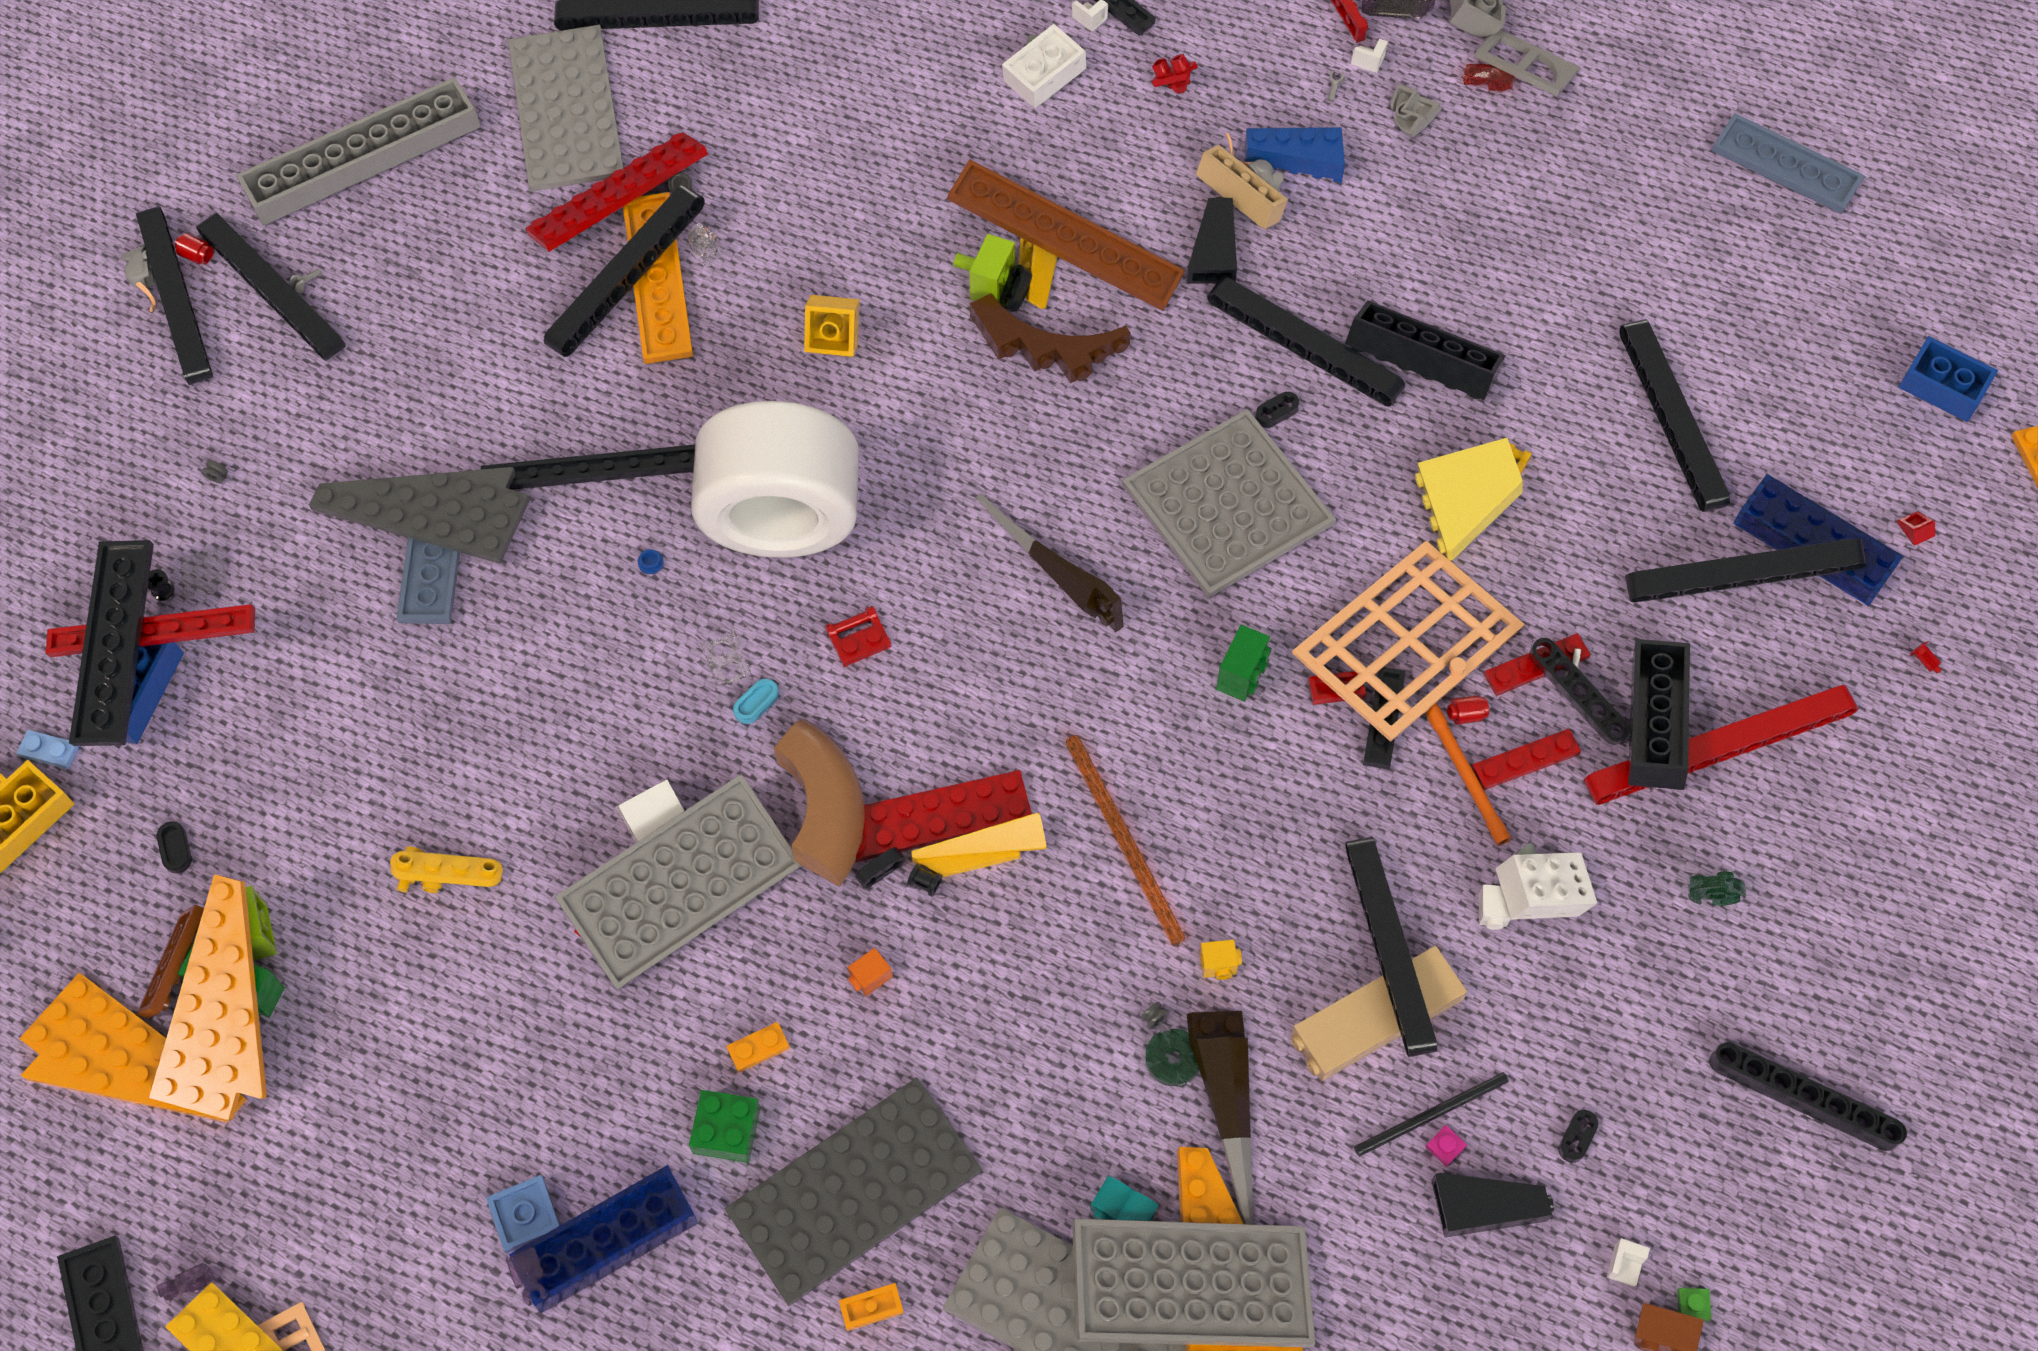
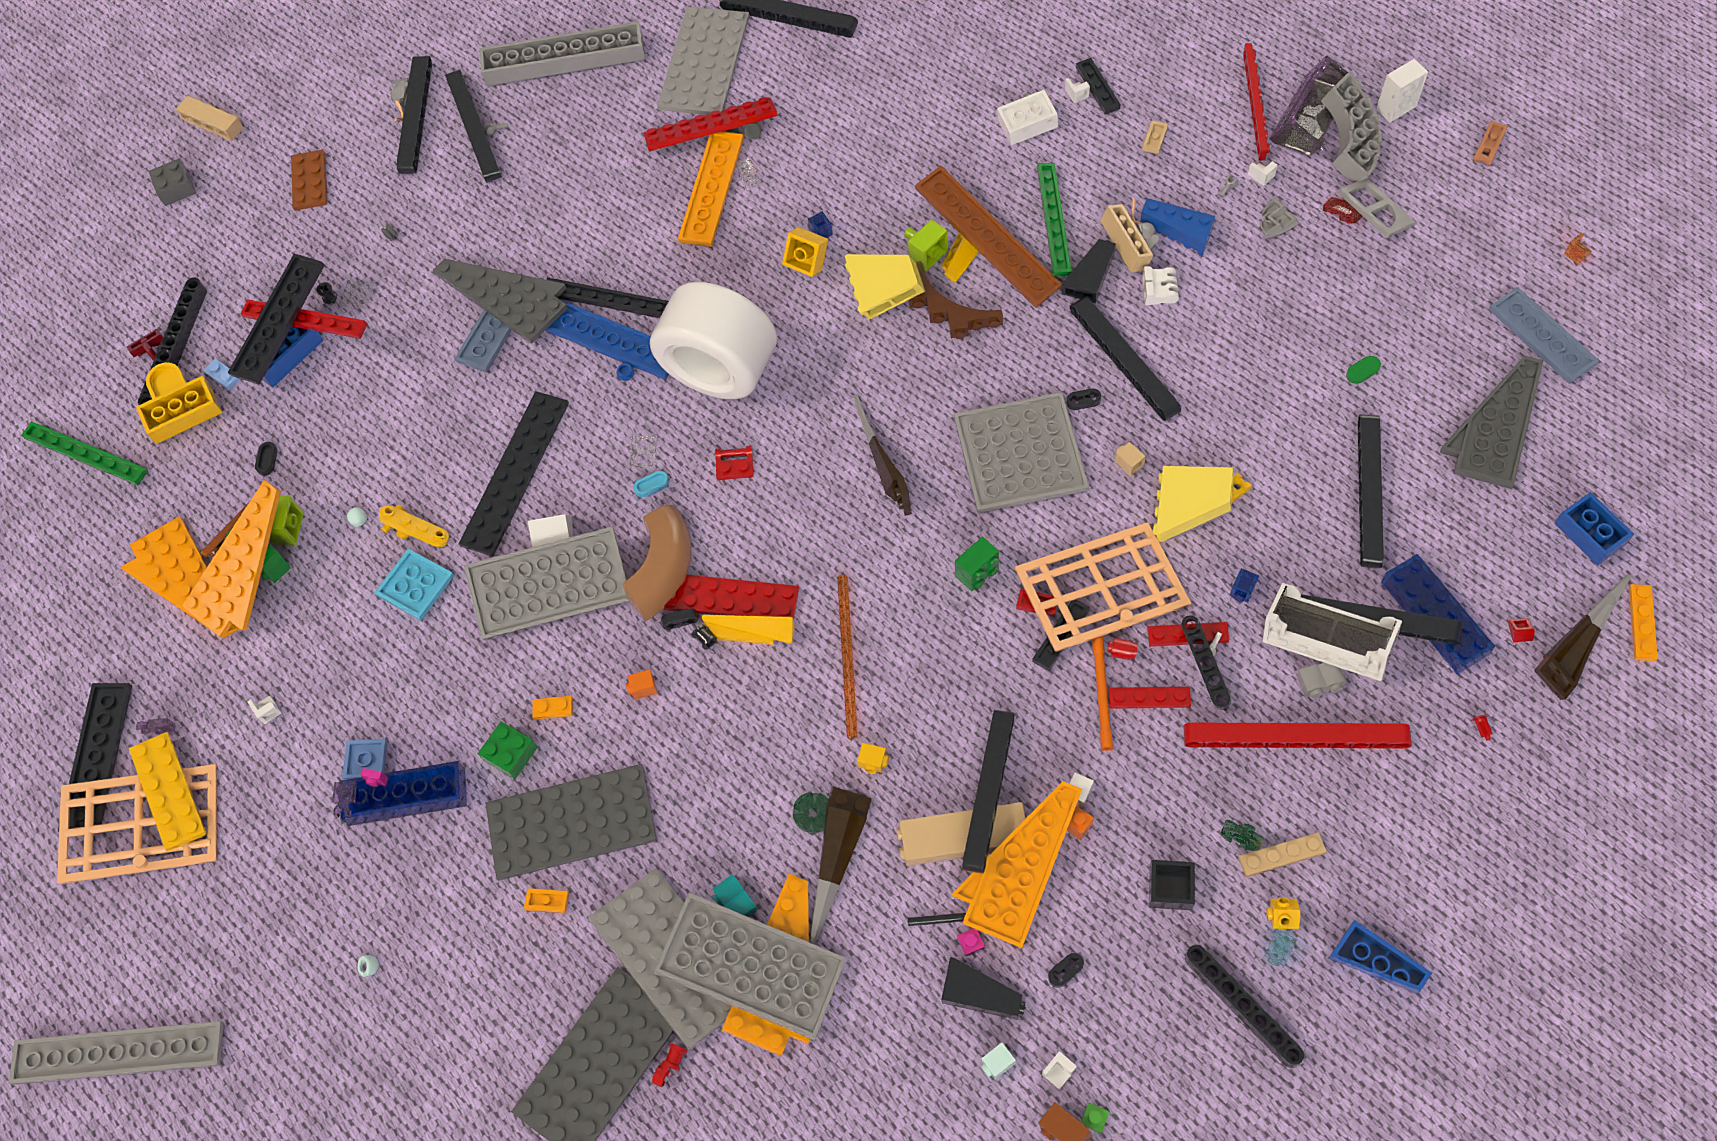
camera: 30 degrees right, 0 degrees up
(52, 432) = (309, 180): none -> dark orange plate
(194, 249) = (438, 89): red brick -> none
(342, 1197) = (265, 709): none -> white panel
(351, 884) = (356, 517): none -> light aqua piece
(482, 948) = (414, 584): none -> medium azure plate
(555, 750) = (513, 474): none -> black plate
(561, 1230) = (373, 777): none -> dark pink plate
(611, 524) = (607, 338): none -> blue plate
(624, 271) = (689, 177): black beam -> none
(833, 283) = (820, 225): none -> clear blue brick
(953, 334) = (882, 281): none -> light yellow slope
(1016, 288) = (940, 262): black beam -> none
(1137, 189) = (1054, 219): none -> green plate
(1154, 1015) = (812, 780): dark grey bush -> none
(1175, 76) = (1115, 146): red hips -> none
(1217, 47) = (1155, 137): none -> tan plate
(1307, 236) = (1160, 286): none -> white legs
(1369, 467) = (1129, 458): none -> tan brick
(1425, 350) = (1204, 389): black brick -> none
(1472, 1071) = (1018, 870): none -> light orange wing
(1514, 946) = (1080, 823): none -> orange brick
(1545, 884) = (1118, 788): white piece -> none
(1549, 1282) = (997, 1061): none -> light aqua brick
(1579, 580) = (1244, 585): none -> clear blue brick
(1599, 268) = (1363, 369): none -> green tile
(1659, 714) = (1254, 698): black brick -> none
(1660, 981) = (1172, 885): none -> black piece
(1715, 605) = (1330, 634): none -> windscreen
(1720, 664) = (1320, 679): none -> light grey brick
(1768, 896) = (1282, 854): none -> tan plate
(1781, 50) = (1577, 251): none -> clear orange panel
(1785, 297) = (1494, 434): none -> dark grey wing
(1805, 966) = (1283, 913): none -> yellow brick
(1817, 1010) = (1280, 948): none -> clear light blue brick
(1933, 978) = (1378, 958): none -> blue wedge
(1984, 541) = (1567, 658): none -> dark brown plate

